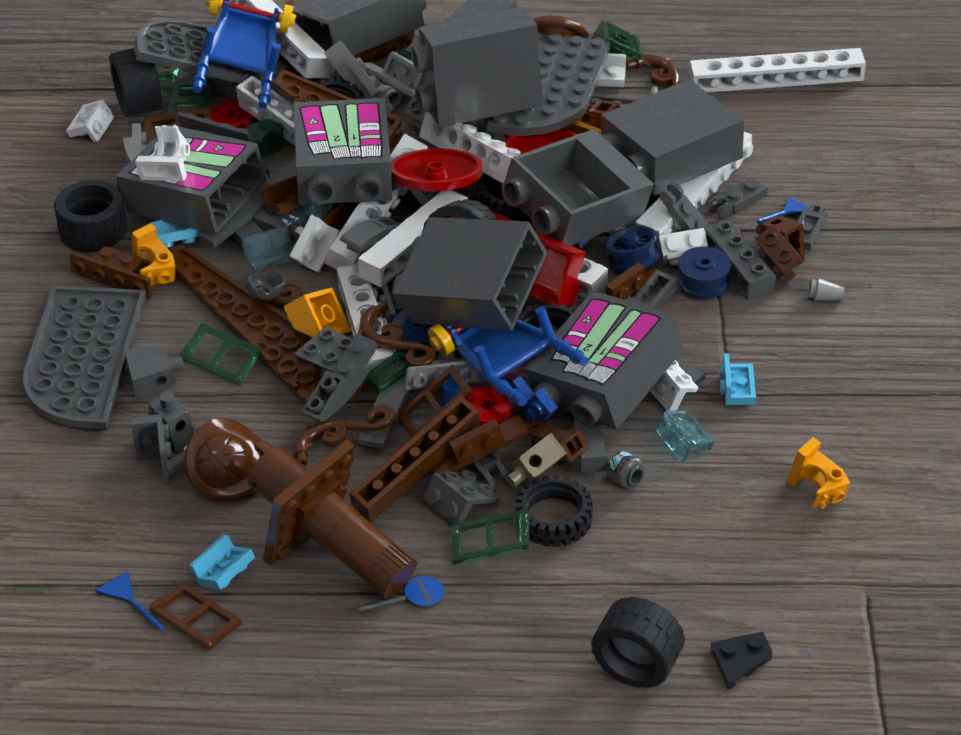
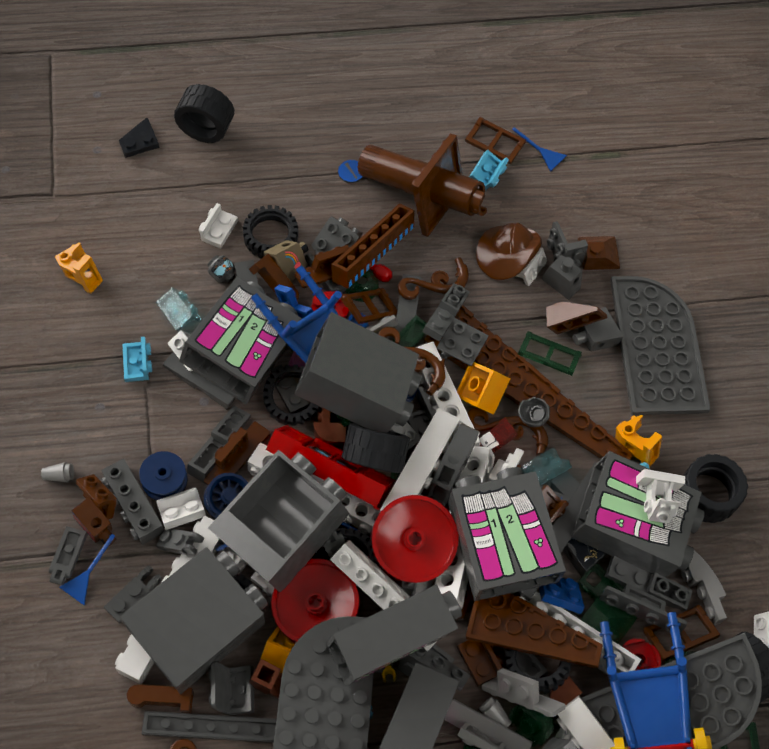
camera: 165 degrees right, 20 degrees up
(107, 457) = (601, 253): none -> reddish brown slope
(113, 269) = (673, 435): reddish brown bracket -> none
(180, 369) = (569, 316): none -> slope
(283, 149) = (563, 594): none -> blue plate
(311, 280) = (498, 436): none -> clear red leg
(490, 551) = (311, 194): clear green window -> none
(627, 527) = (217, 226): none -> white bracket

